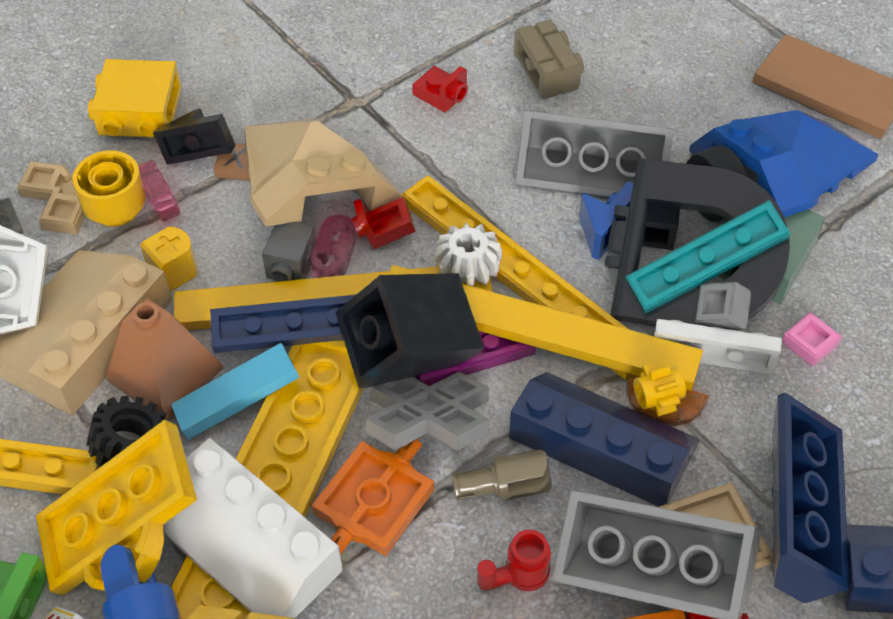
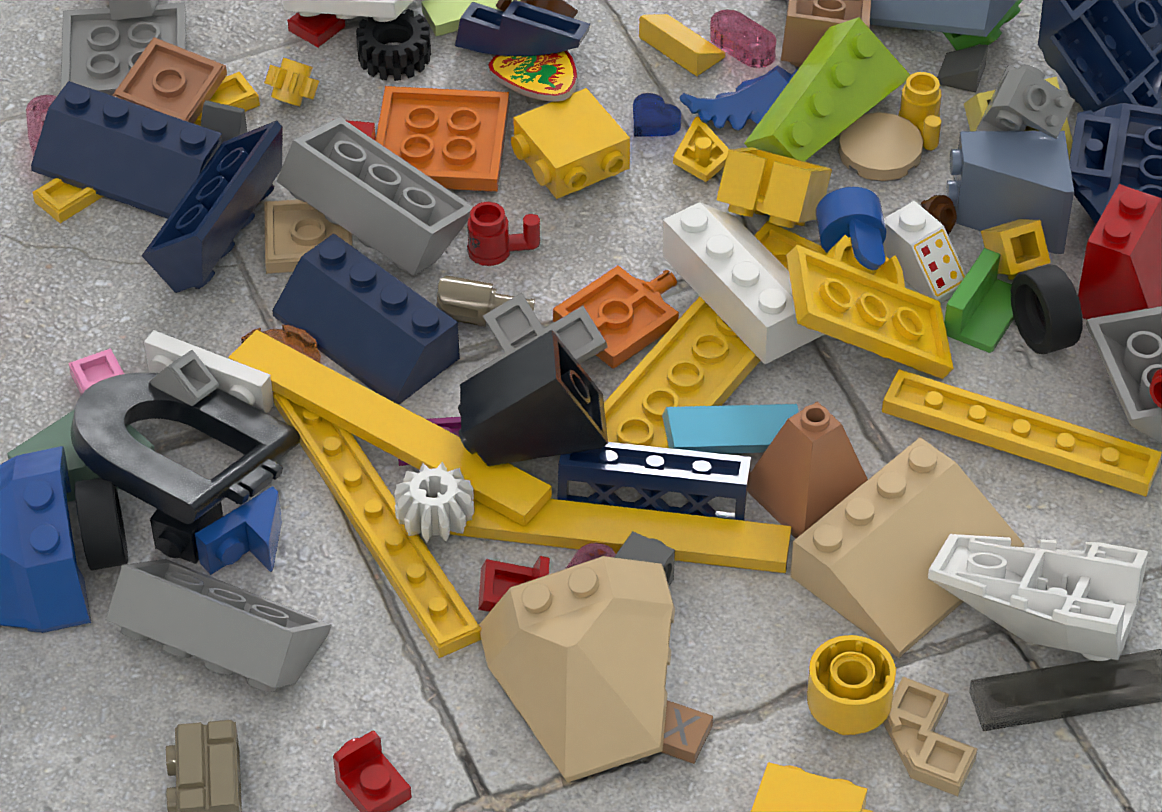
camera: 165 degrees left, 5 degrees down
(118, 417) = (851, 380): black tyre -> none
(158, 191) = (791, 696): clear pink beam -> none
(173, 254) = (785, 595): yellow piece -> none
(194, 137) = (740, 749): black slope -> none
(659, 388) = (296, 321): yellow gear -> none
(707, 256) = (176, 411): teal tile -> none

